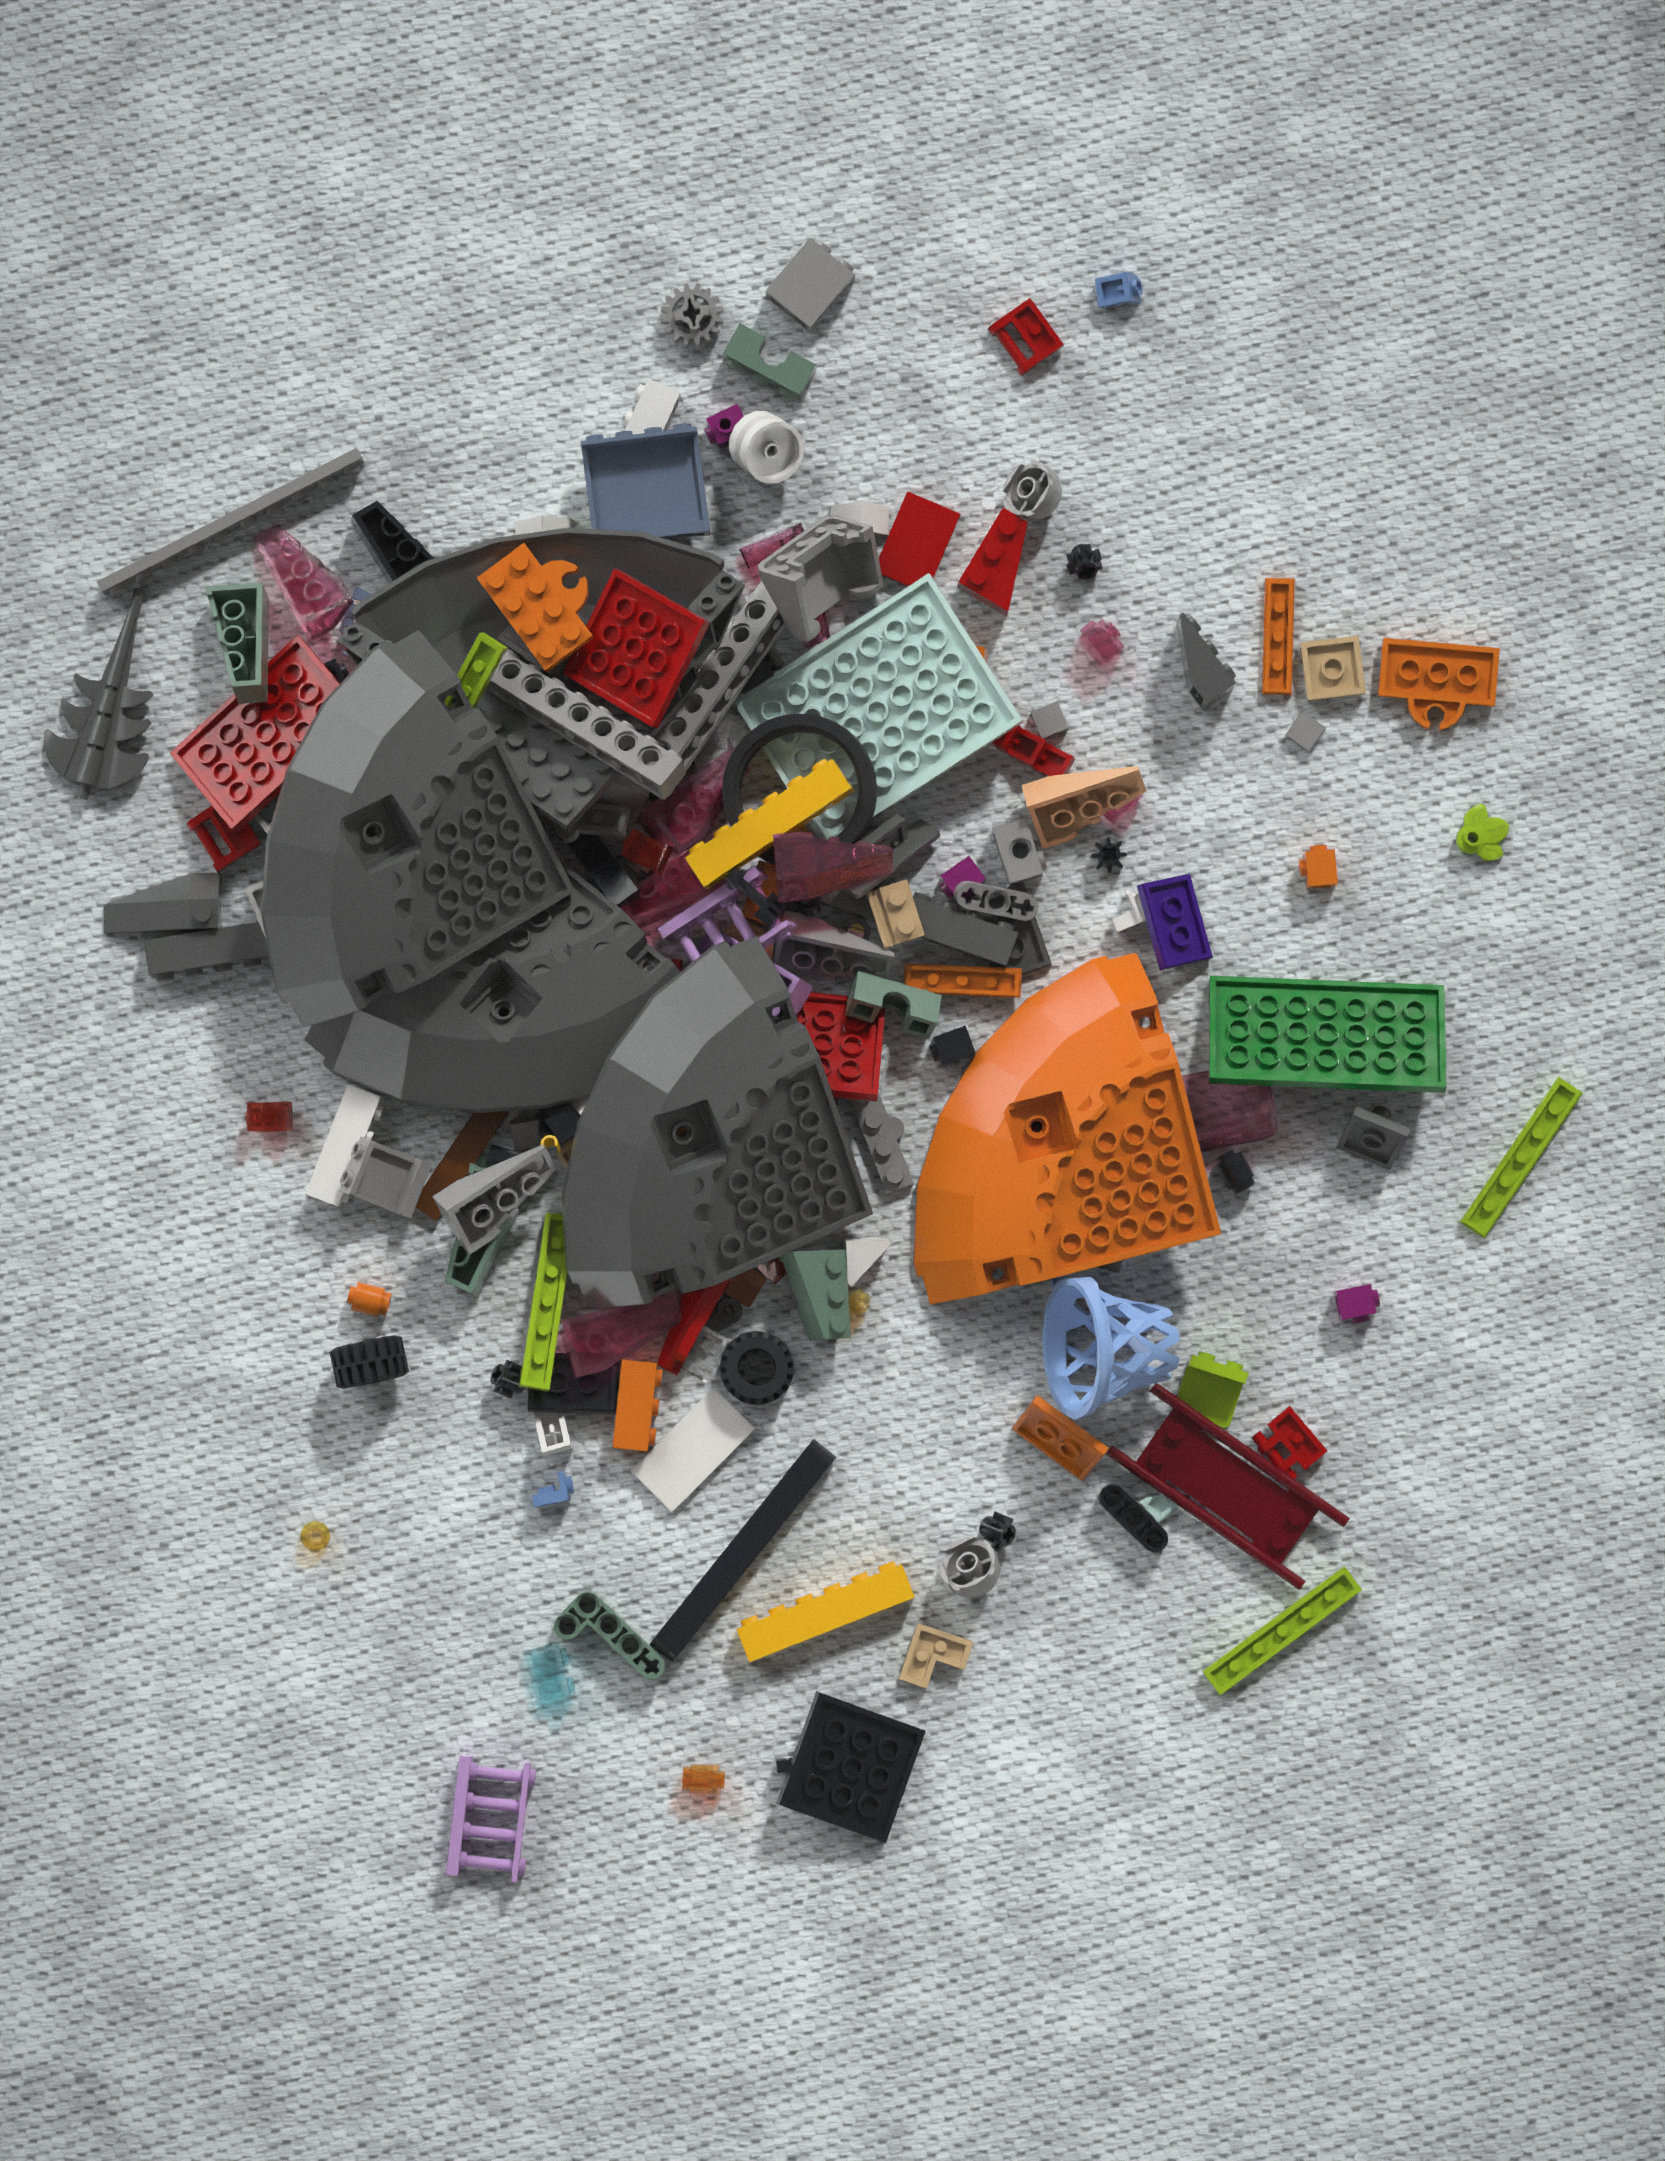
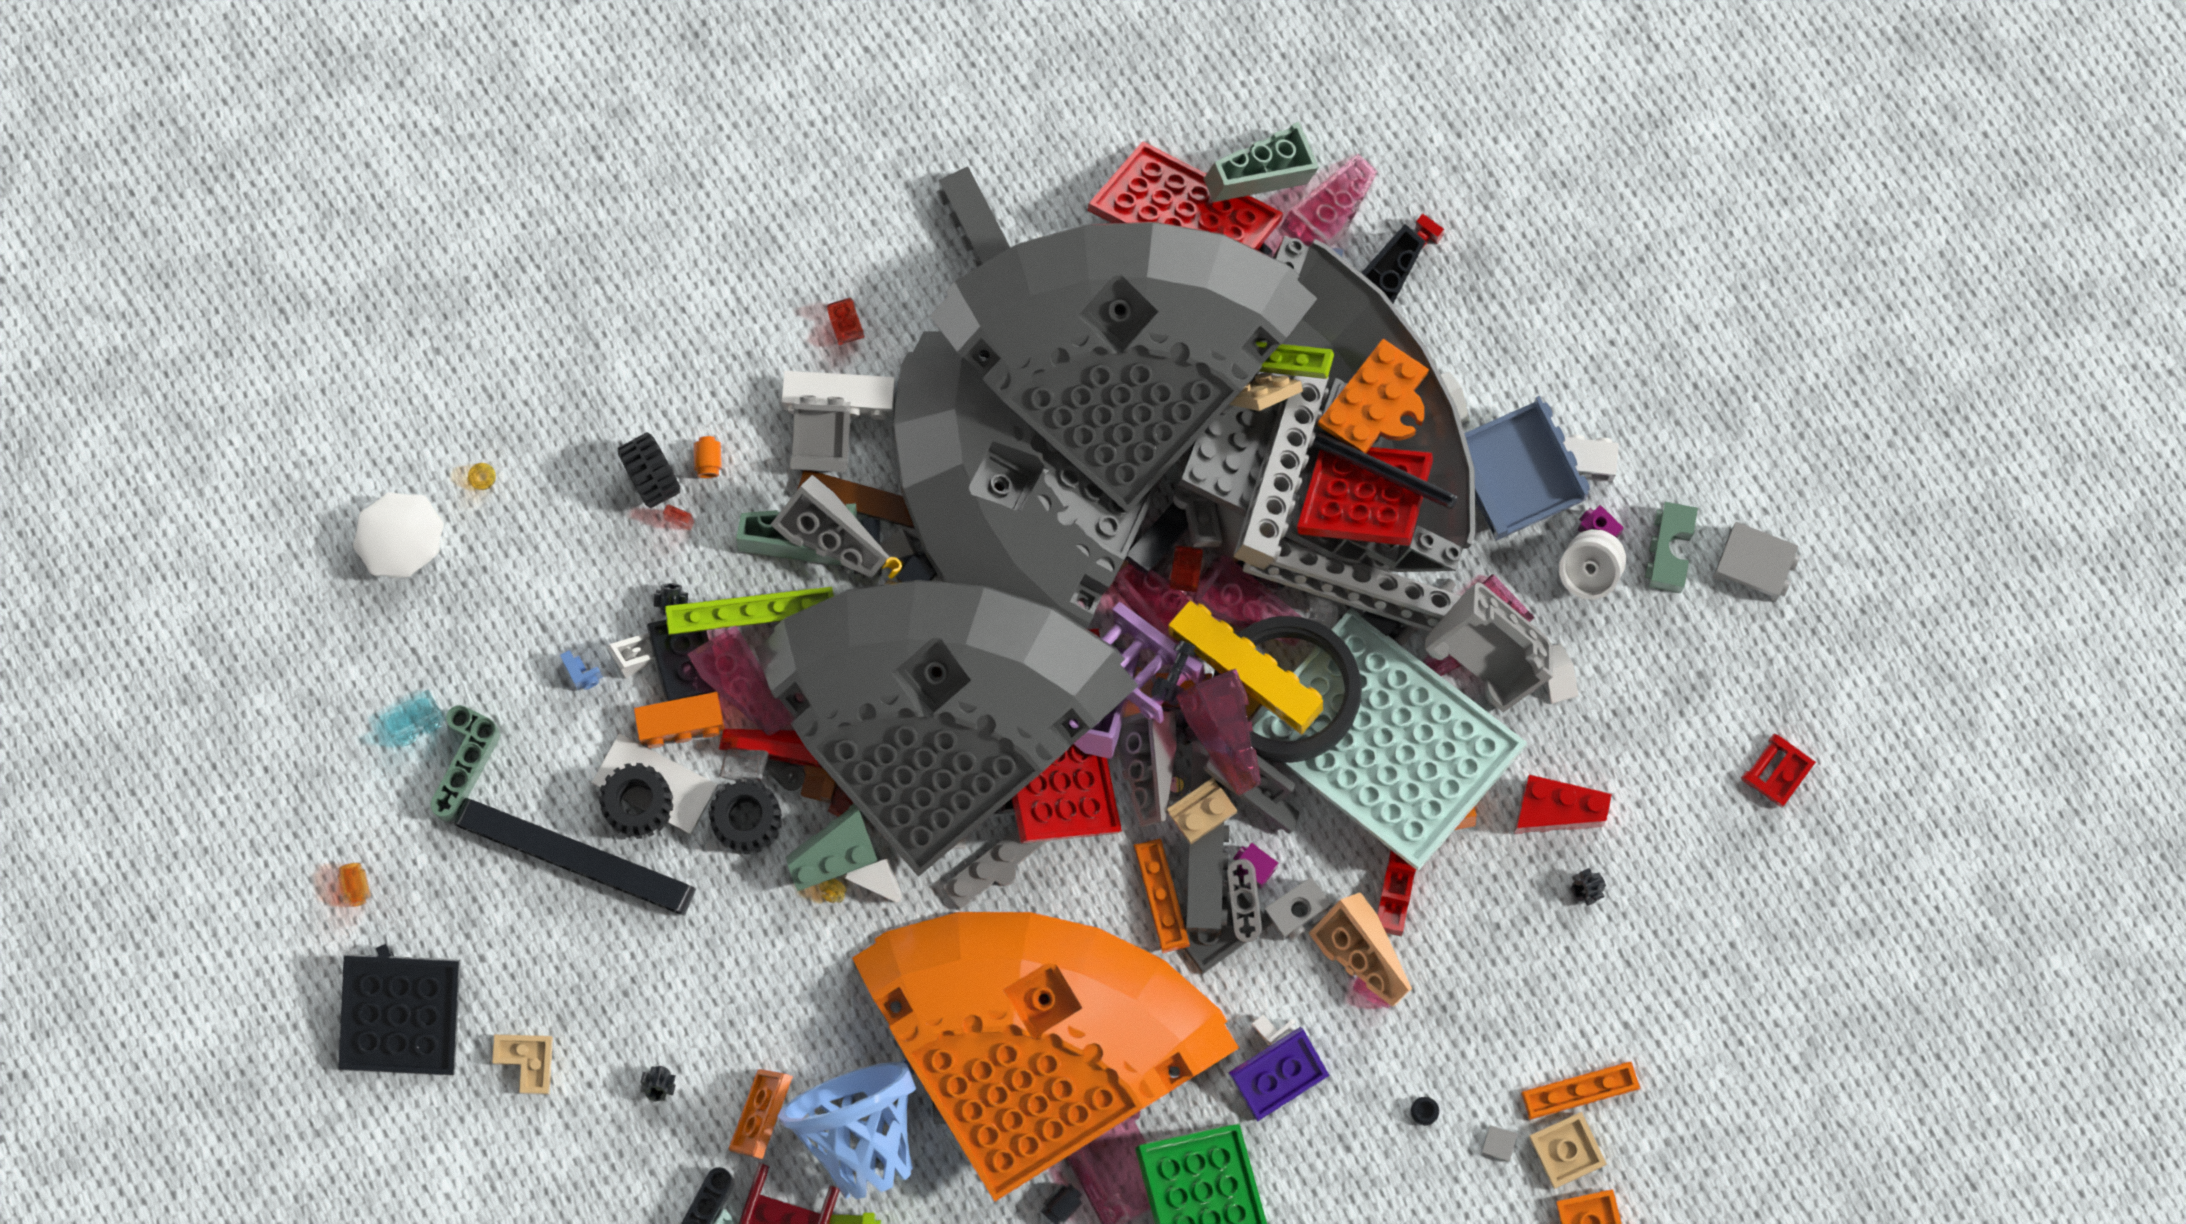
camera: 75 degrees right, 10 degrees down
(94, 755) = (1118, 79): dark grey animal -> none
(178, 905) = (1008, 187): dark grey wedge -> none
(220, 529) = (1371, 136): light grey plate -> none
(238, 843) = (1082, 216): red plate -> none
(355, 1636) = (398, 535): none -> white piece
(360, 493) = (1429, 229): none -> red tile
(423, 1346) = (678, 517): none -> clear red tile
(466, 1801) = (249, 684): lavender fence -> none
(501, 709) = (1266, 391): none -> tan plate
(620, 621) = (1385, 470): none -> black axle
(680, 317) = (1696, 476): light grey gear -> none
(683, 1471) = (629, 778): none -> black tyre
(826, 1612) = (537, 948): yellow brick -> none
(915, 1006) = (1122, 814): sand green arch -> none
(917, 540) = (1556, 730): red tile -> none
(952, 1046) = (1097, 904): black brick -> none
(970, 1567) = (615, 1067): light grey cylinder -> none
(1032, 491) = (1636, 818): light grey cylinder -> none
(1049, 720) = (1429, 901): light grey tile -> none
(1101, 641) = (1519, 925): clear pink brick -> none
(1107, 847) = (1329, 992): black gear -> none
(1118, 289) = (1852, 841): medium blue bracket -> none
(1203, 672) = (1521, 1025): dark grey slope -> none
(1252, 793) = (1424, 1111): none -> black plate
(1319, 867) = (1374, 1195): orange brick -> none

